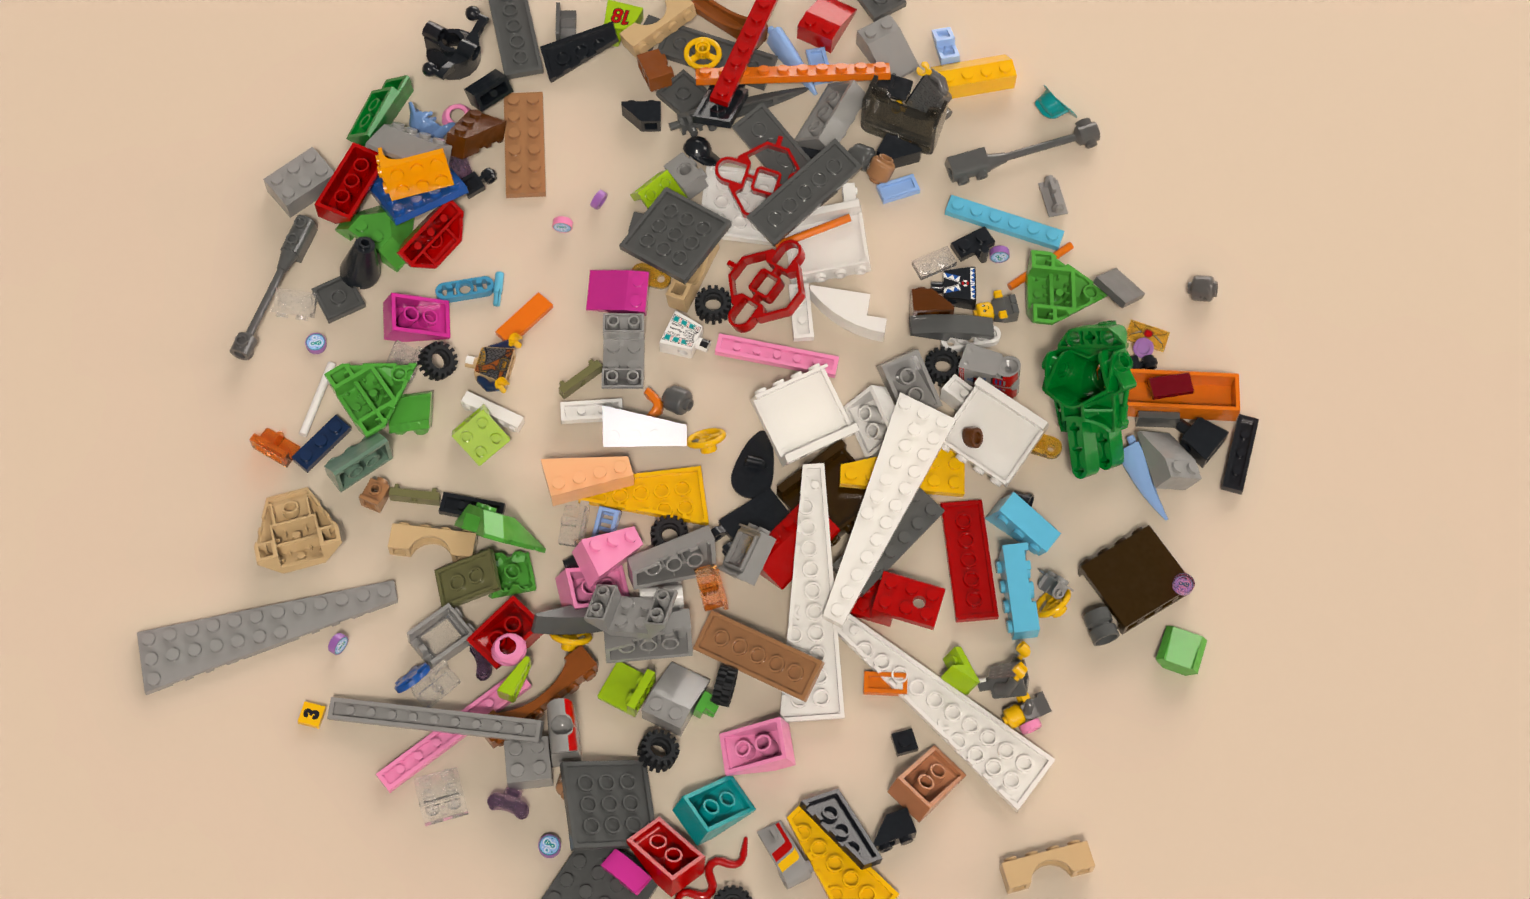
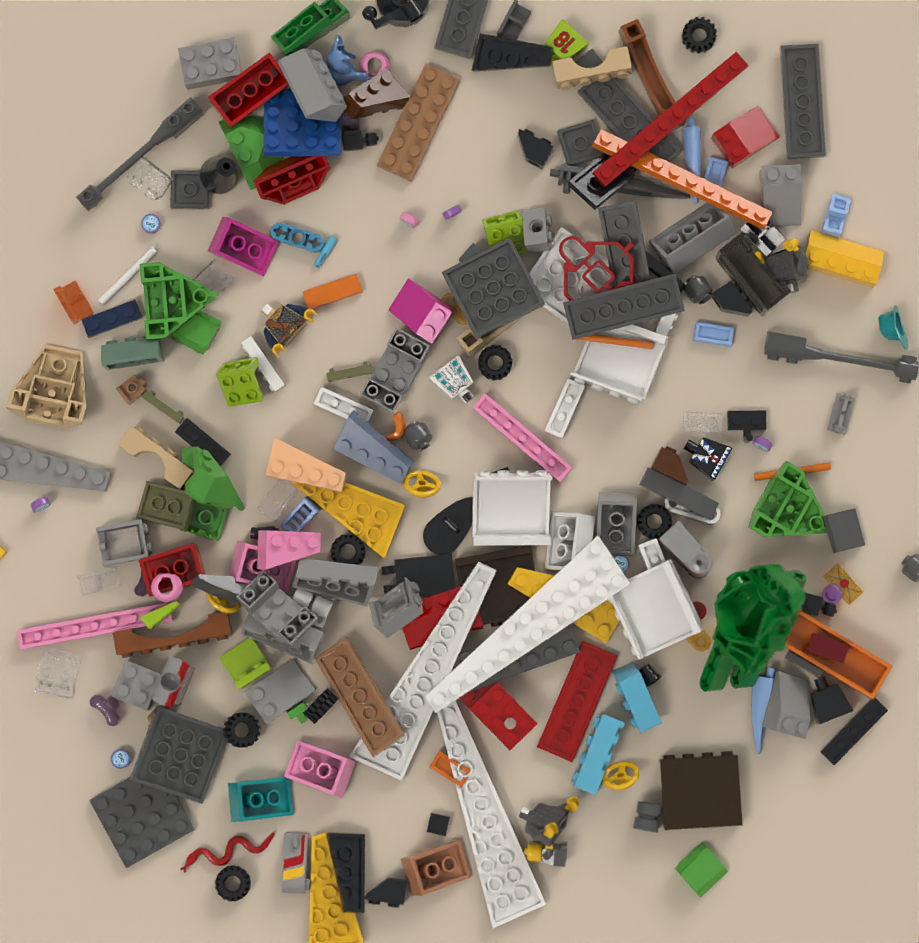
camera: 30 degrees right, 20 degrees up
(412, 677) = (82, 567): blue wheel -> none
(414, 173) = (298, 121): light orange bracket -> none
(435, 720) = (82, 614): light grey plate -> none
(447, 356) = (232, 289): black tyre -> none
(488, 90) = (412, 55): black brick -> none
(626, 871) = (165, 815): dark pink slope -> none
(655, 69) = (565, 110): dark orange brick -> none
(667, 856) = (202, 818): red slope -> none
(700, 150) = (562, 213): black cap -> none
(702, 51) = (616, 109): yellow piece -> none
(711, 587) = (354, 616): clear orange panel -> none
(760, 314) = (529, 394): red piece -> none
(848, 311) = (604, 429): white slope -> none
(880, 168) = (706, 311): medium nougat head -> none
(959, 672) = (513, 795): lime slope -> none
(972, 437) = (636, 604): reddish brown tile -> none
(1000, 309) = (730, 495): piece -> none
(1004, 222) = (785, 414): medium azure plate -> none
(1030, 726) = (542, 867): bright pink tile -> none
(1053, 584) = (629, 763): light grey hinge -> none
(1183, 584) = (733, 821): clear pink tile -> none

